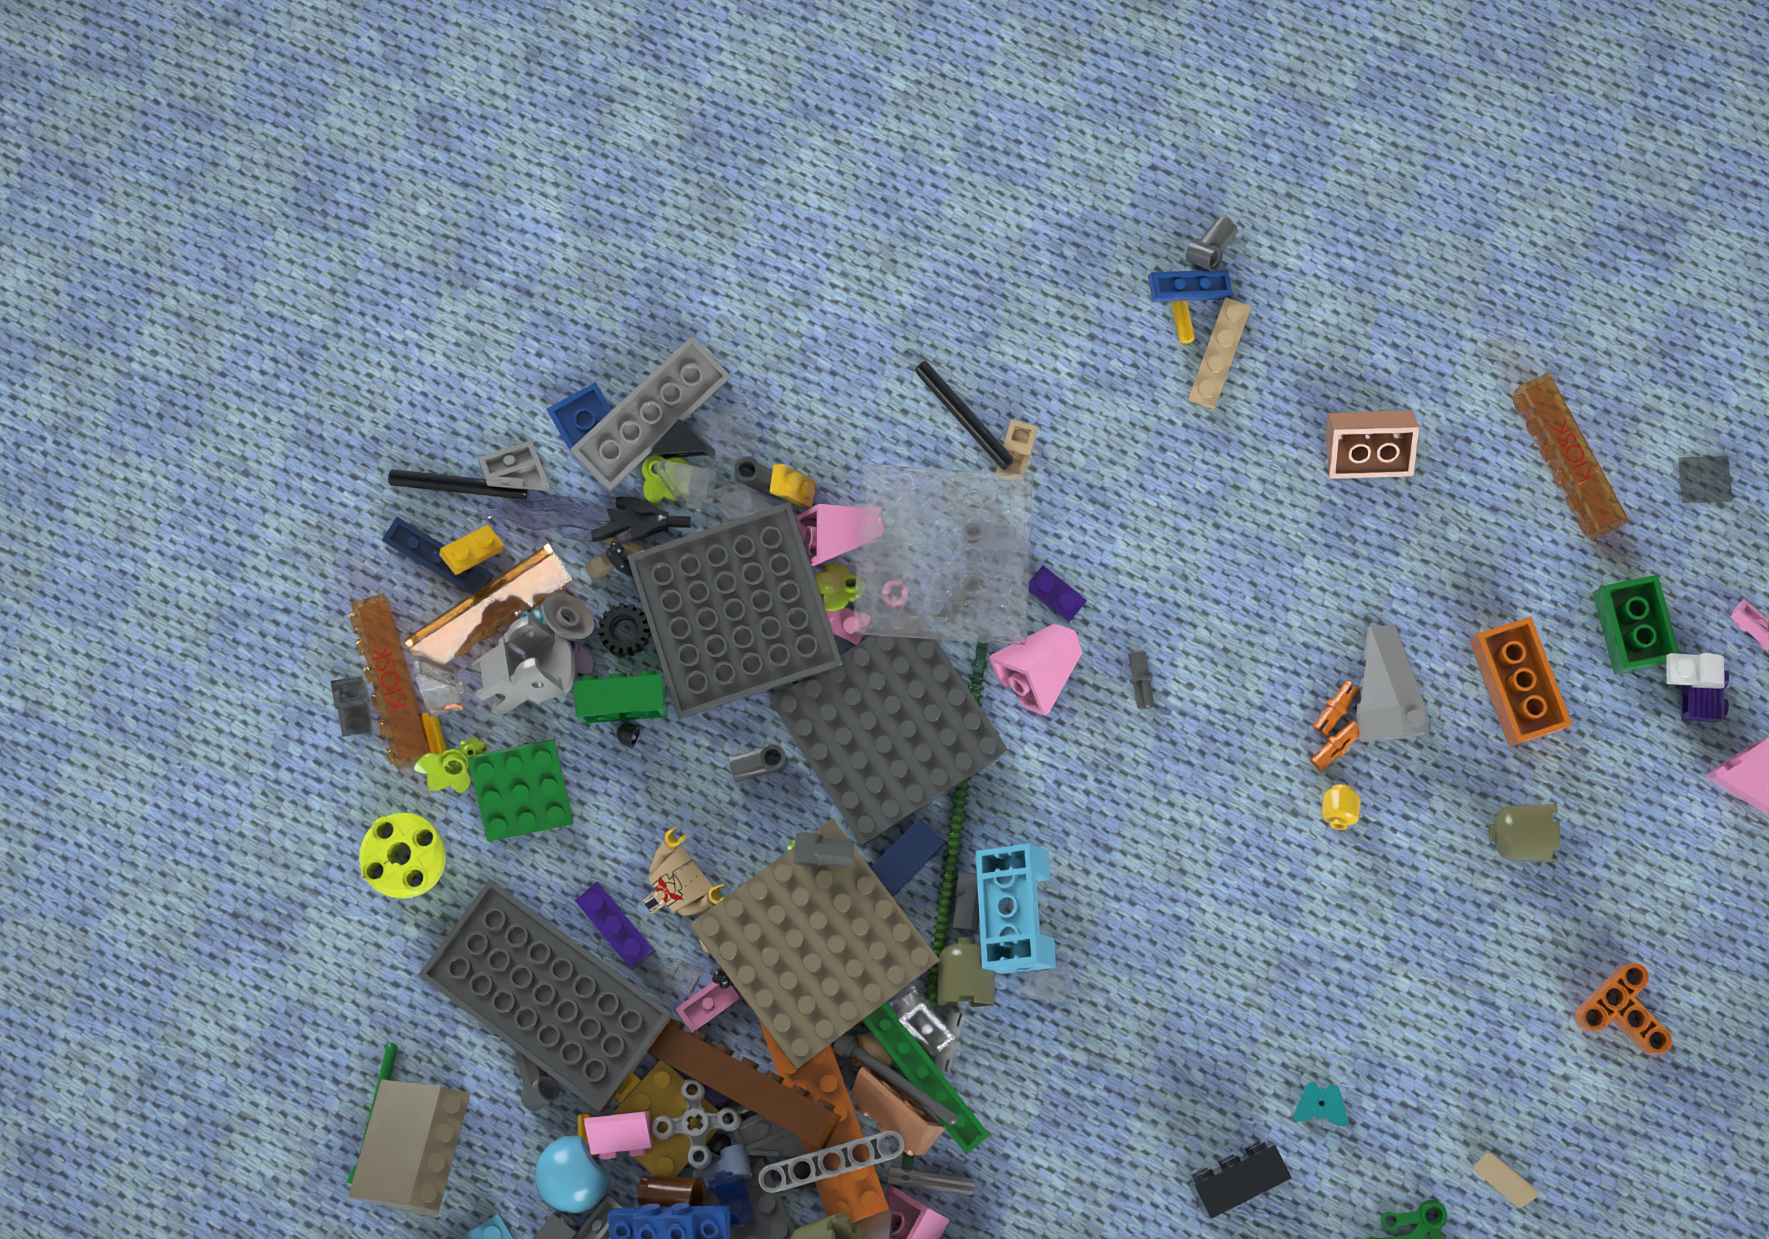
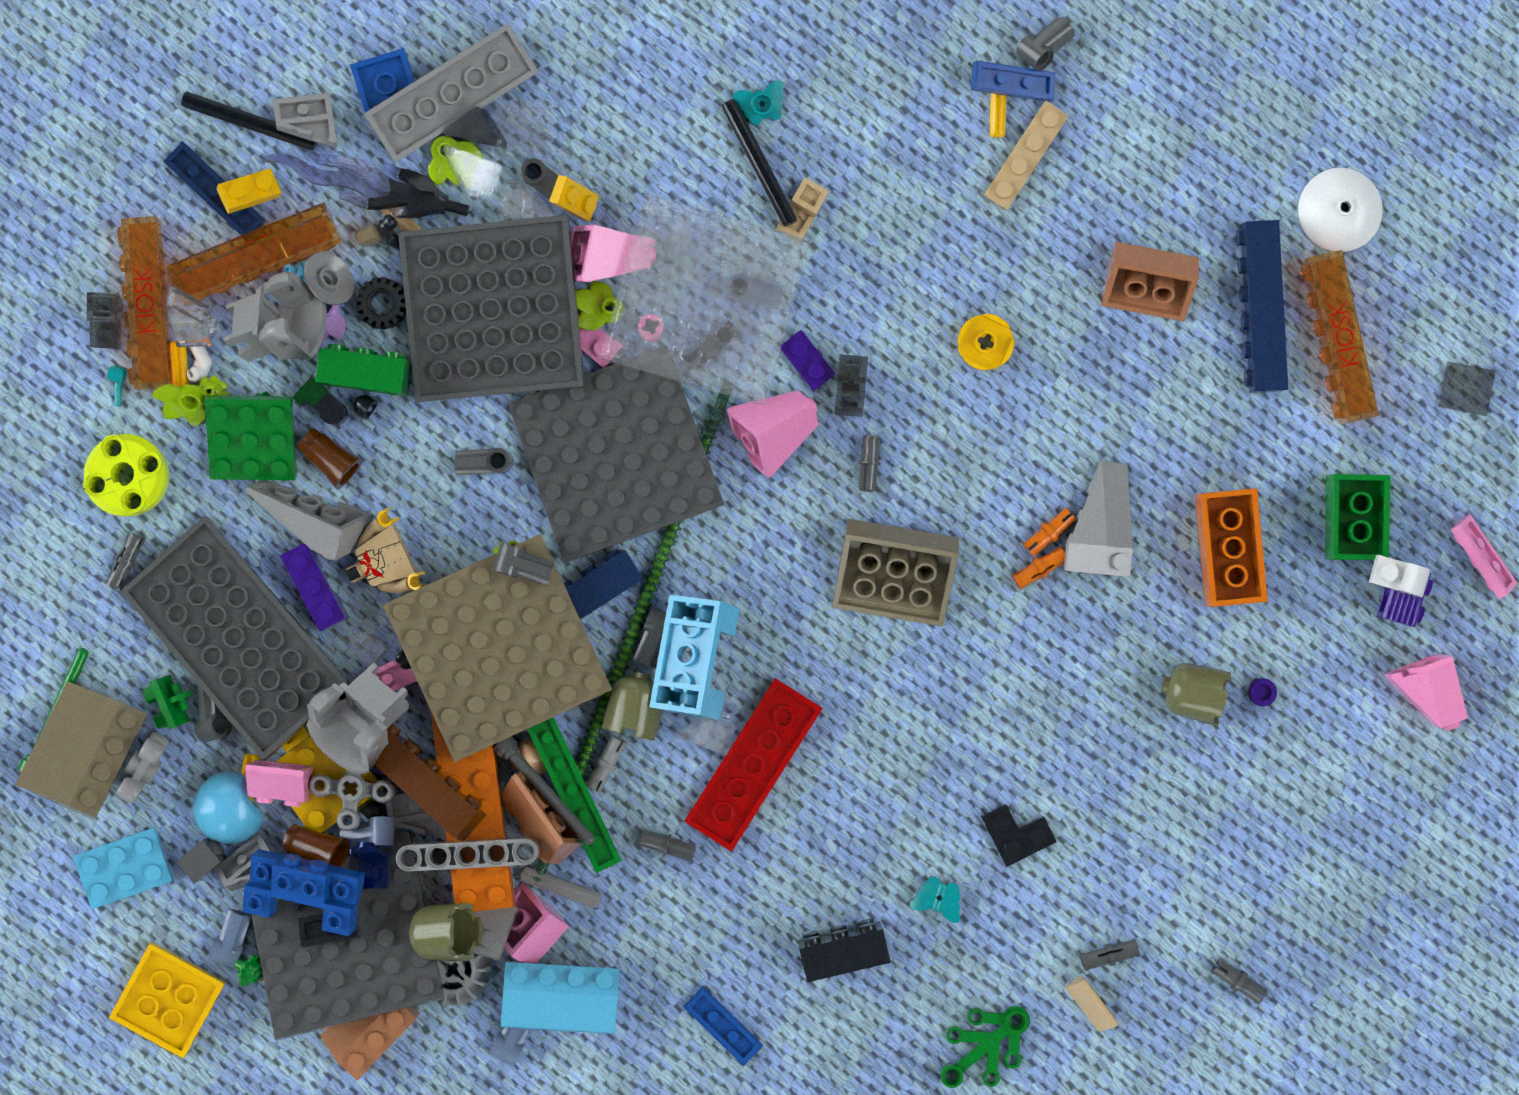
camera: 15 degrees right, 10 degrees up
(376, 759) = (117, 375): none -> teal hand
(417, 943) = (125, 561): none -> dark grey pin
(456, 731) = (201, 364): none -> white arm
(476, 1150) = (142, 767): none -> light grey gear
(491, 1076) = (170, 700): none -> green hips
(592, 741) = (329, 406): none -> leg
(603, 792) = (329, 457): none -> reddish brown plant
(611, 864) = (318, 525): none -> light grey wedge
(691, 1055) = (355, 728): none -> light grey piece
(922, 1020) = (583, 740): clear slope -> none
(941, 360) = (770, 96): none -> teal animal
(1030, 1112) = (667, 845): none -> dark grey axle
(1098, 1008) = (753, 764): none -> red plate
(1105, 607) = (850, 385): none -> clear smoke brick
(1195, 782) = (895, 572): none -> dark tan slope
(1216, 525) = (1000, 336): none -> yellow plate
(1341, 806) = (1029, 627): yellow head -> none
(1380, 1028) = (1016, 842): none -> black plate
(1487, 444) = (1263, 306): none -> dark blue brick
(1510, 1123) = (1110, 954): none -> dark grey pin
(1523, 349) = (1326, 222): none -> white dish
(1589, 820) = (1262, 692): none -> dark purple tile
(1623, 1006) = (1246, 871): orange beam -> none
(1648, 1121) = (1239, 981): none -> dark grey pin

